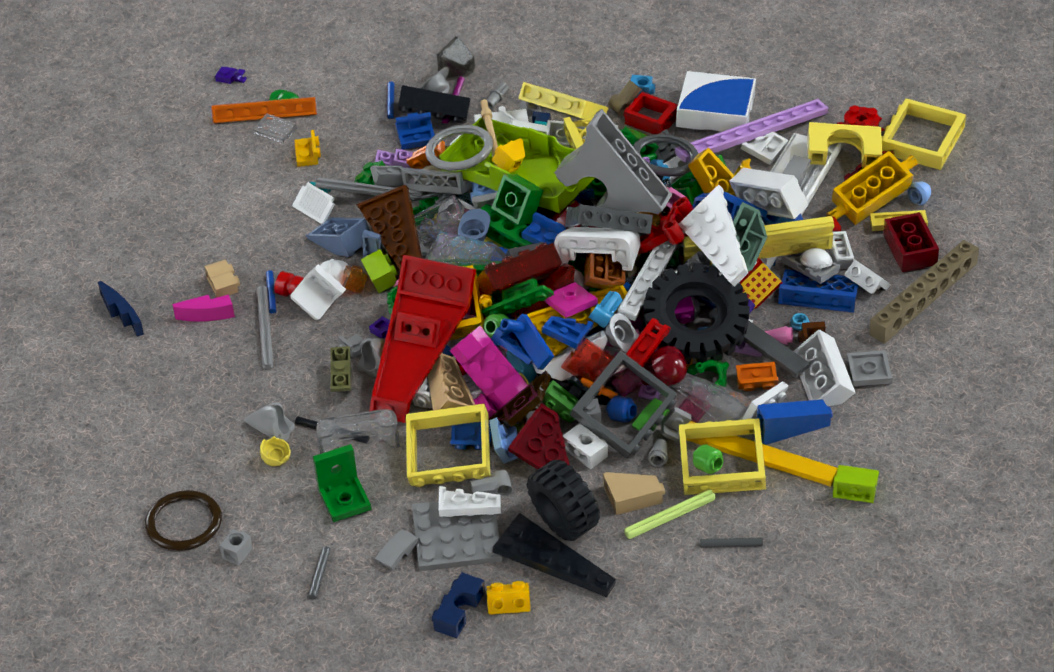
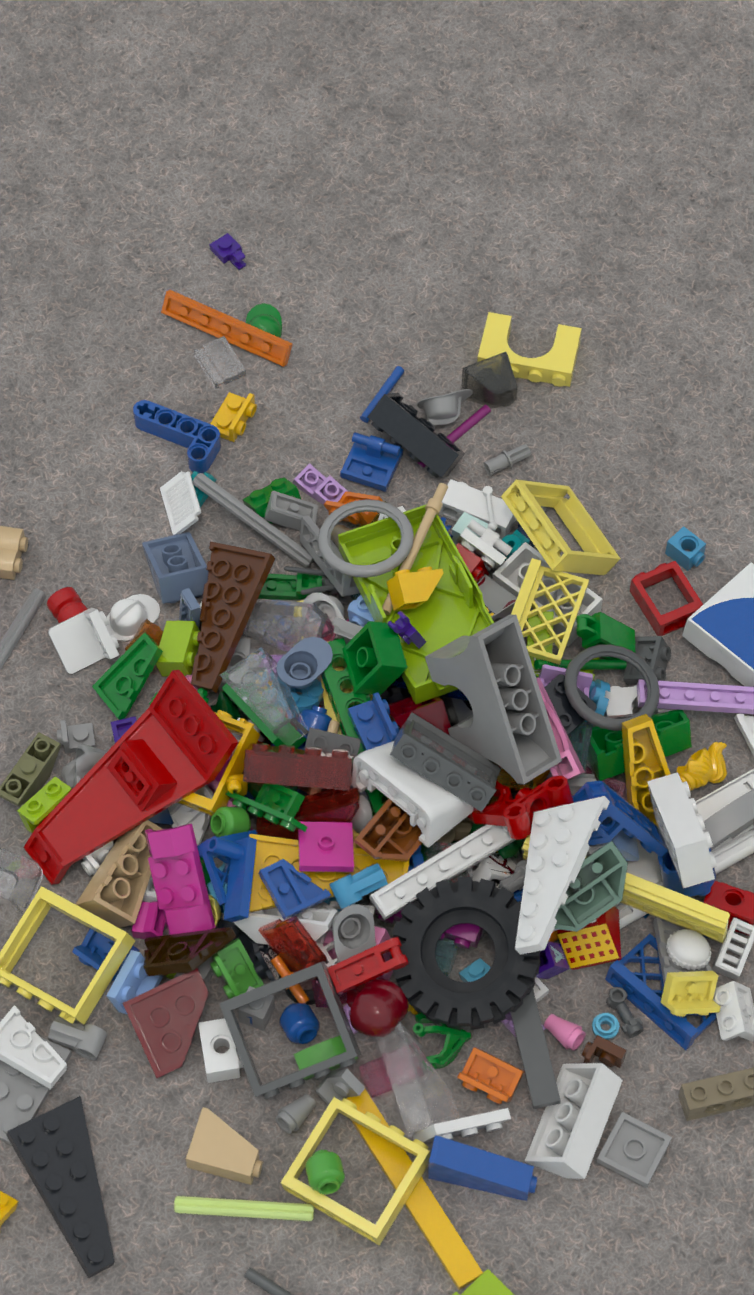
camera: 30 degrees right, 15 degrees up
(271, 291) = (42, 609): blue bar -> none
(279, 170) = (172, 427): none -> blue beam
(360, 297) = (127, 676): none -> green wing
(365, 383) = (42, 803): none -> lime bracket
(485, 37) = (553, 368): none -> light yellow arch
(528, 174) = (406, 630): none -> dark purple plate
(563, 500) = (116, 1125): black tyre -> none
(621, 101) = (644, 558): dark tan piece -> none
(794, 306) = (617, 1002): none -> dark grey bar
(836, 275) = (690, 993): none -> light yellow bracket

